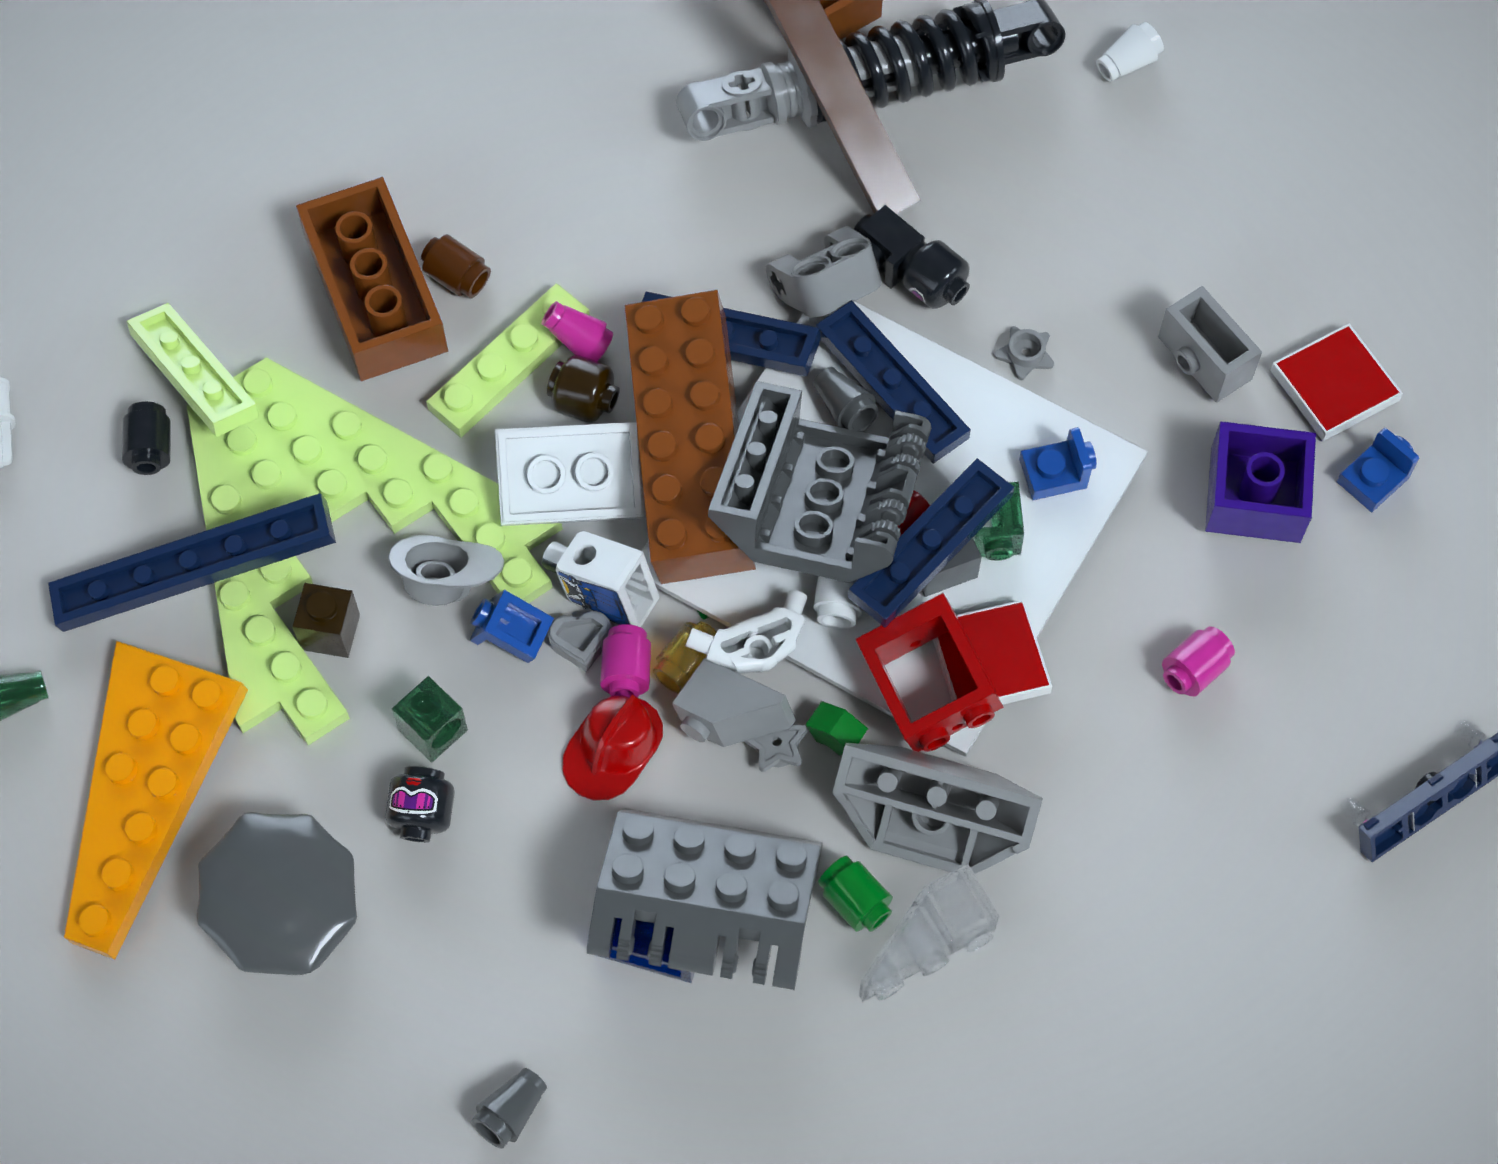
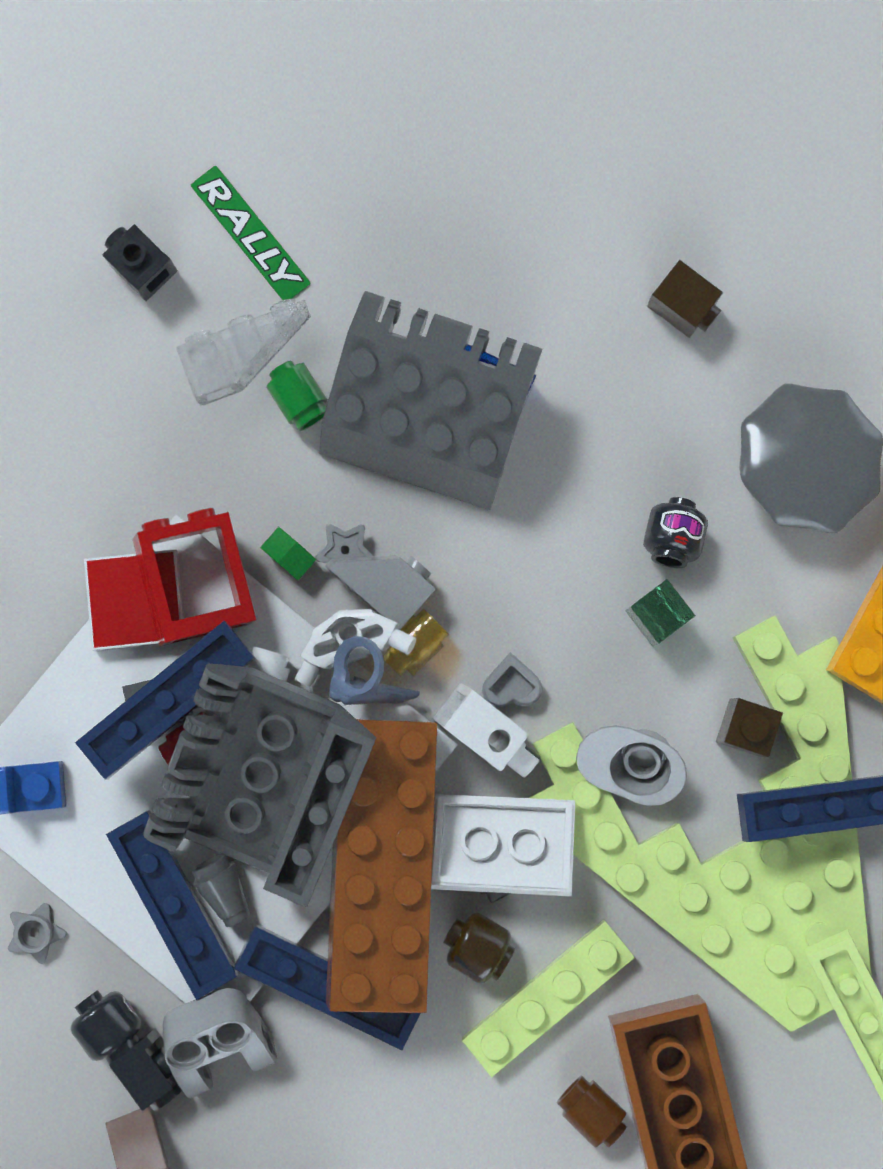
camera: 165 degrees left, 20 degrees up
(429, 1060) = (686, 300): none -> dark brown brick
(508, 1109) = (621, 252): dark grey cone -> none
(511, 625) = (576, 700): blue bracket -> none
(578, 331) = (475, 1010): dark pink cone -> none
(612, 747) = (494, 573): red piece -> none
(626, 661) = (472, 647): dark pink brick -> none
(736, 585) = (358, 690): none -> sand blue piece
(933, 808) = (209, 461): light grey wedge -> none
(946, 1080) = (250, 233): none -> sticker
(1005, 532) = (87, 718): clear green bracket -> none
(1046, 1024) = (147, 272): none -> black brick

